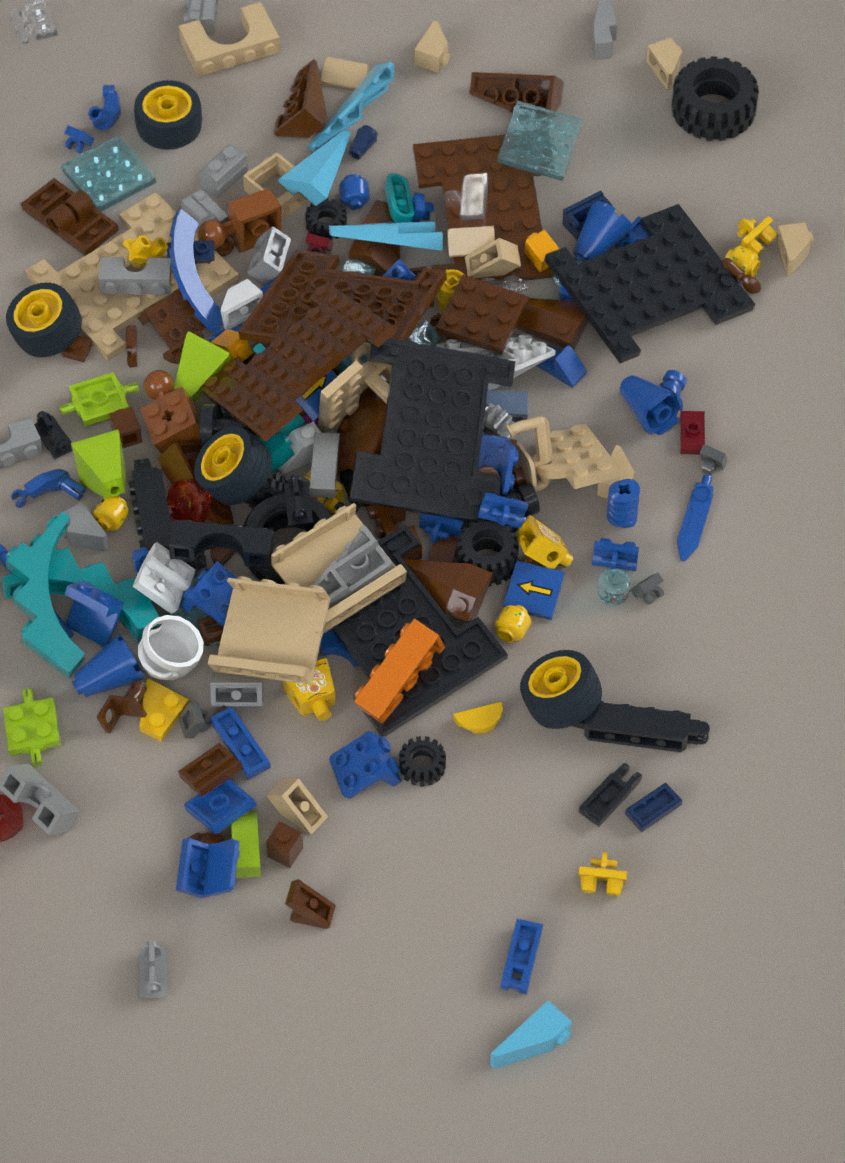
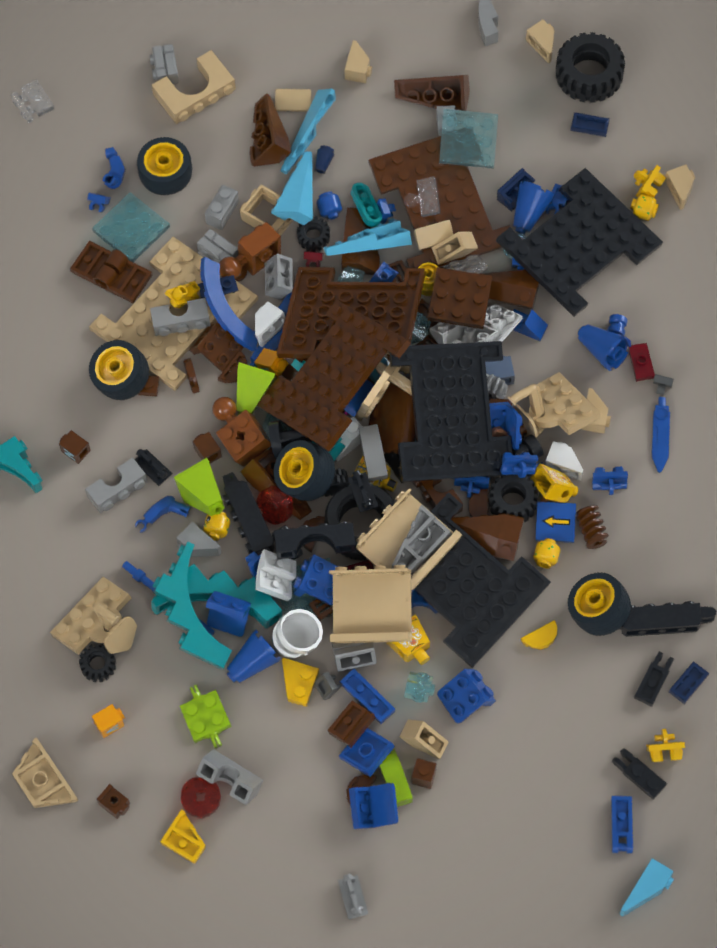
camera: 10 degrees left, 10 degrees up
(98, 398) = (179, 427): lime plate -> none
(123, 705) = (274, 684): reddish brown bracket -> none
(307, 743) = (419, 687): none -> clear light blue brick
(309, 906) = (456, 819): reddish brown slope -> none
(398, 670) = (475, 617): orange wedge -> none
(420, 748) = (502, 692): black tyre -> none
(537, 247) = (489, 230): light orange brick -> none
(562, 903) = (640, 774): none -> black hinge
(564, 521) = (563, 459): none -> white slope
(578, 603) = (591, 526): none -> reddish brown piece
(614, 587) = (616, 508): clear light blue head -> none
(623, 503) = (606, 436): blue piece -> none
(647, 586) = (639, 500): dark grey tile -> none
(699, 162) = (590, 124): none -> dark blue plate
(749, 283) = (654, 224): reddish brown piece -> none

